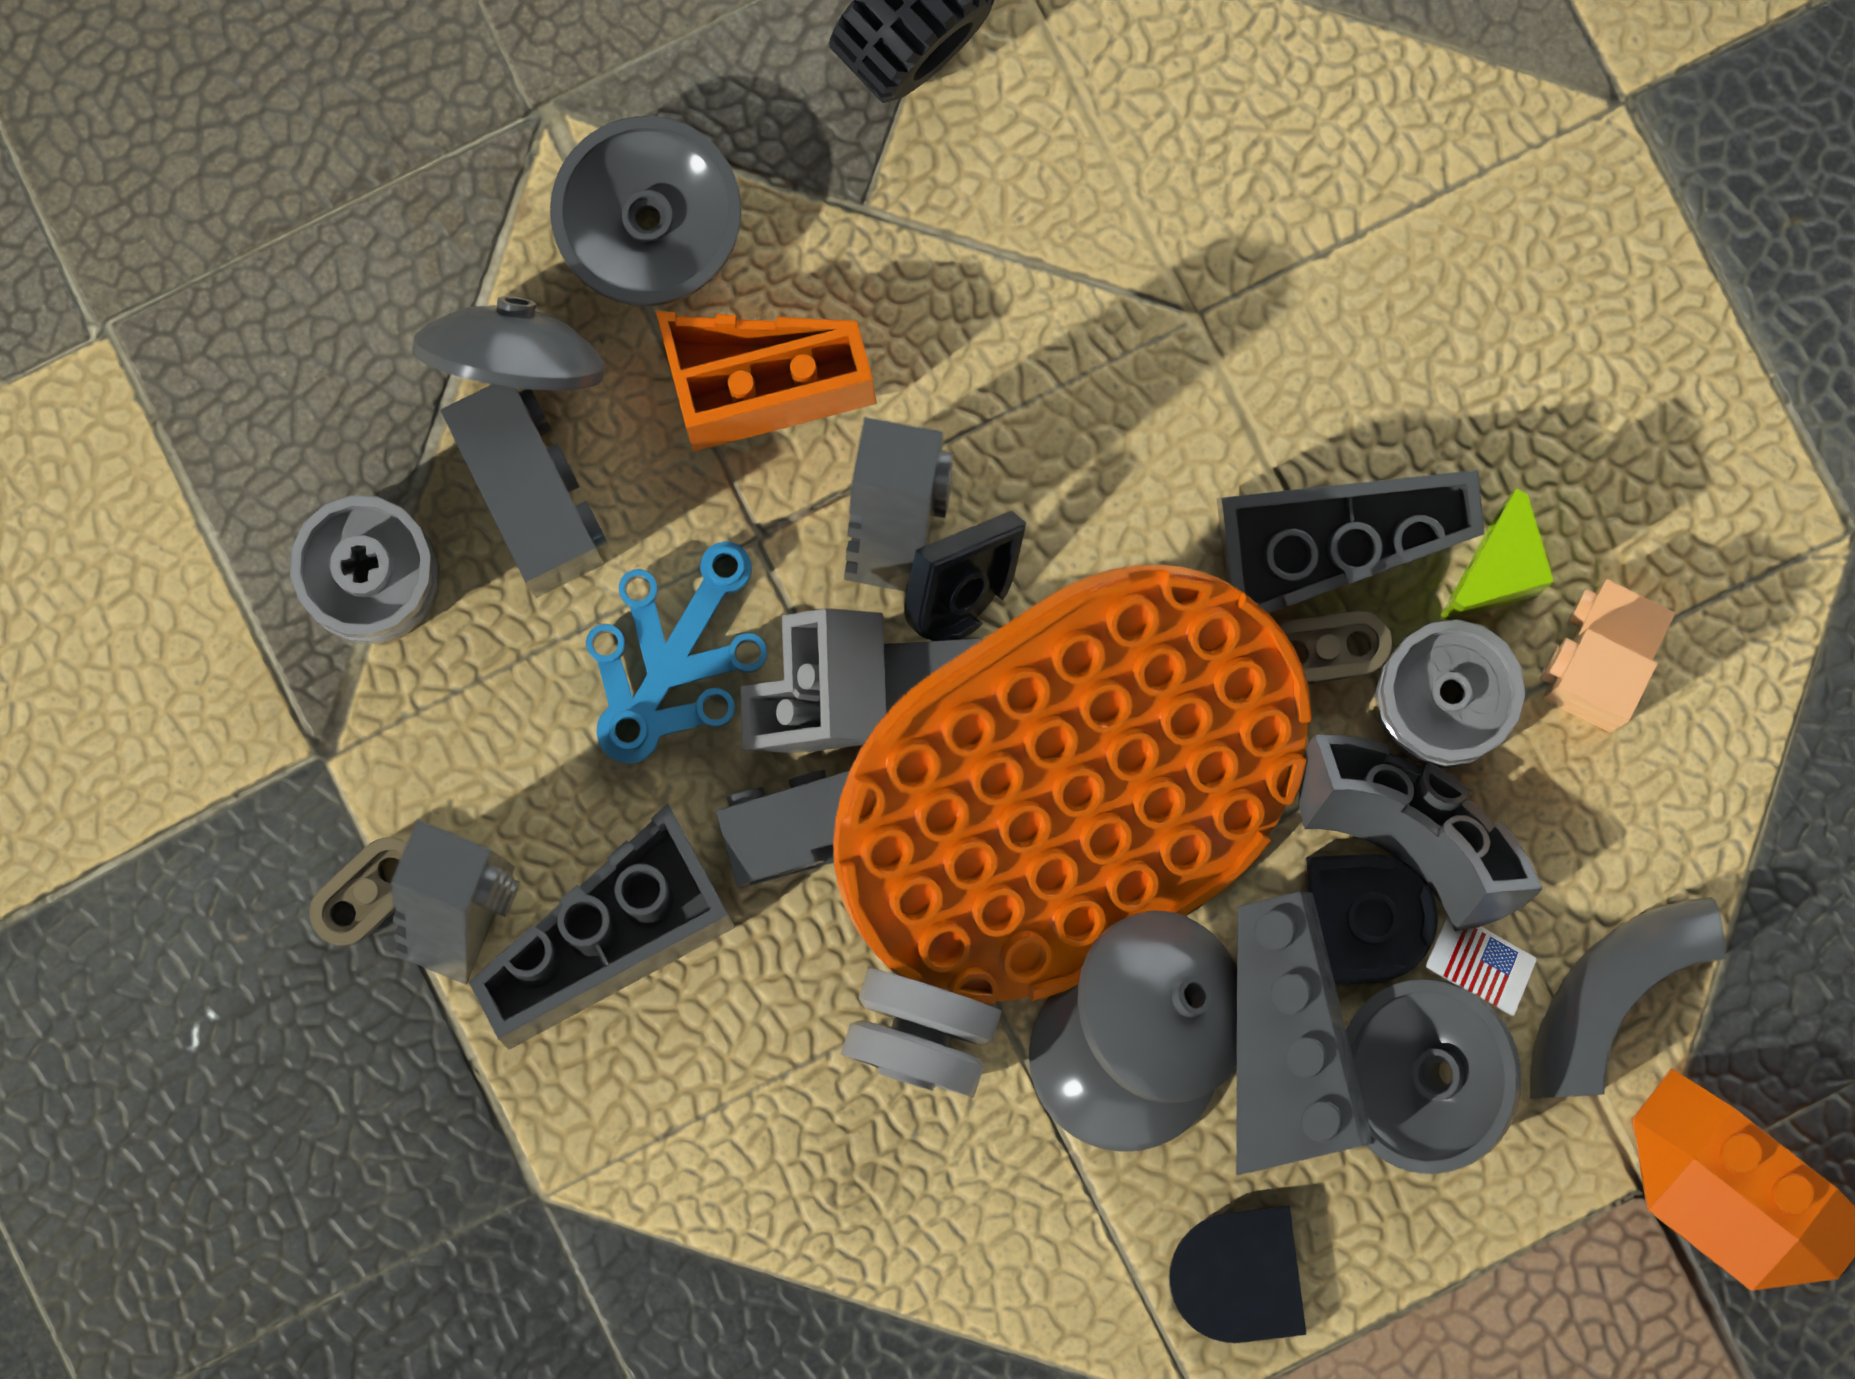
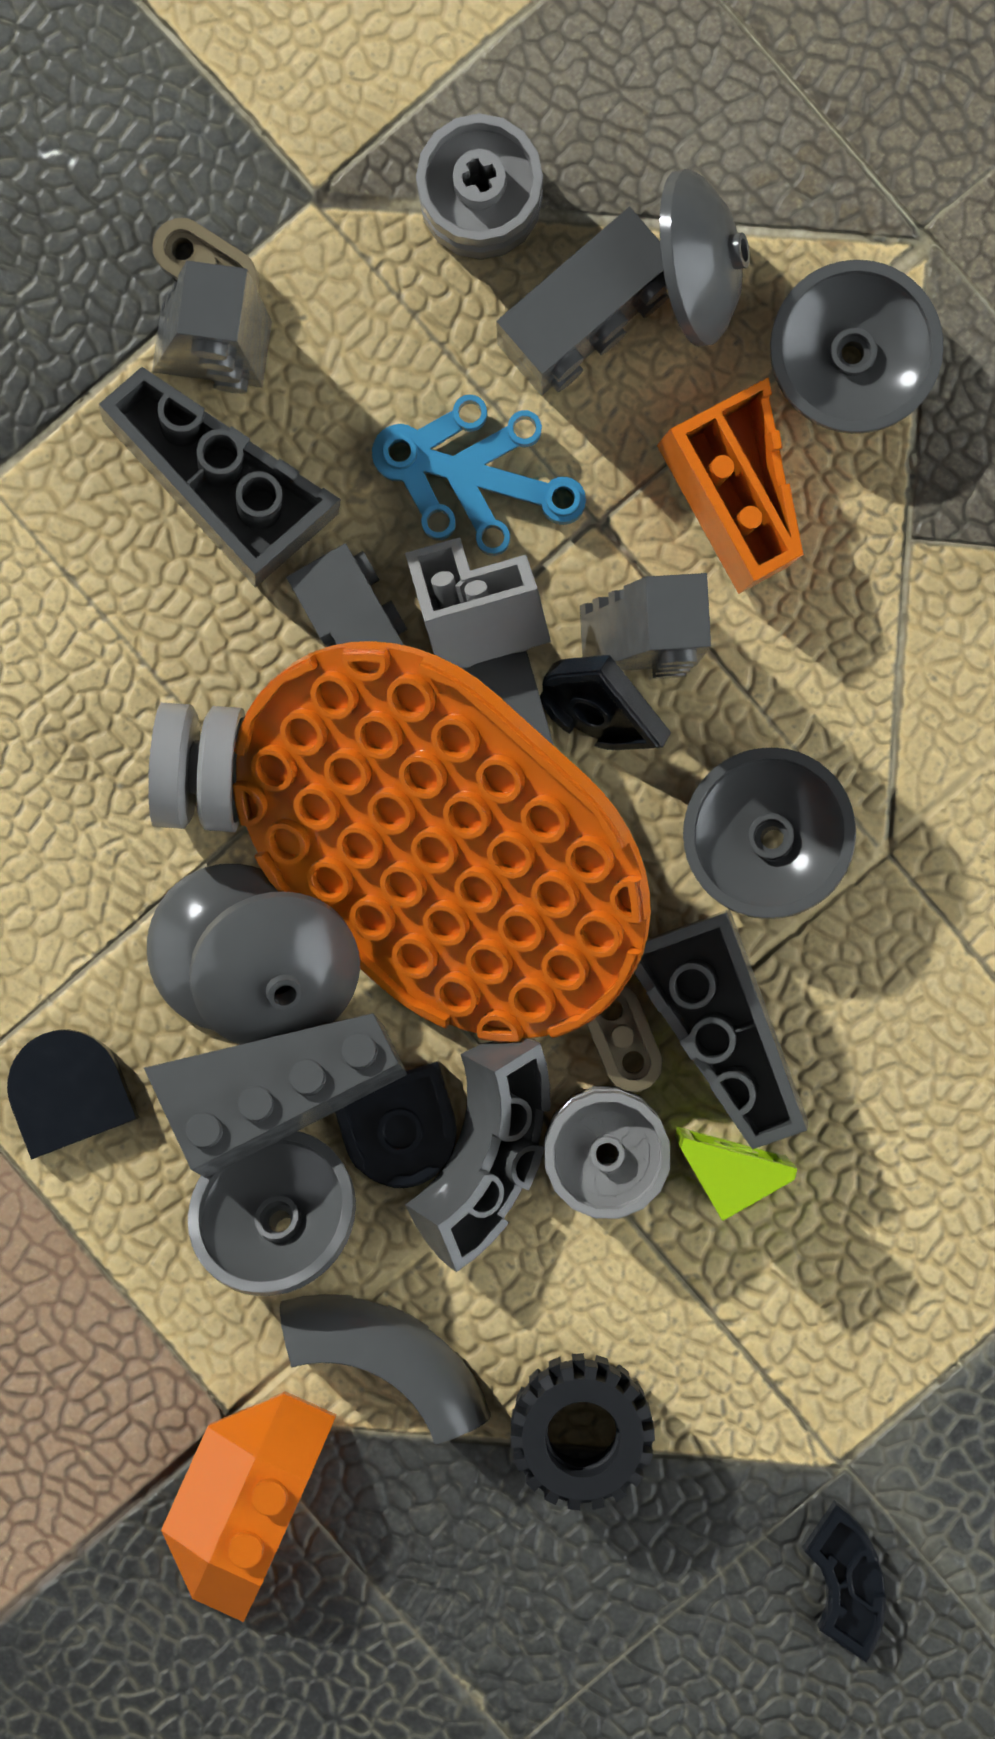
camera: 75 degrees right, 5 degrees up
(1102, 421) = (761, 794): none -> dark grey dish
(1482, 965) = (379, 1235): sticker -> none
(1609, 656) = (675, 1280): light nougat brick -> none
(1802, 787) = (593, 1477): none -> black tyre

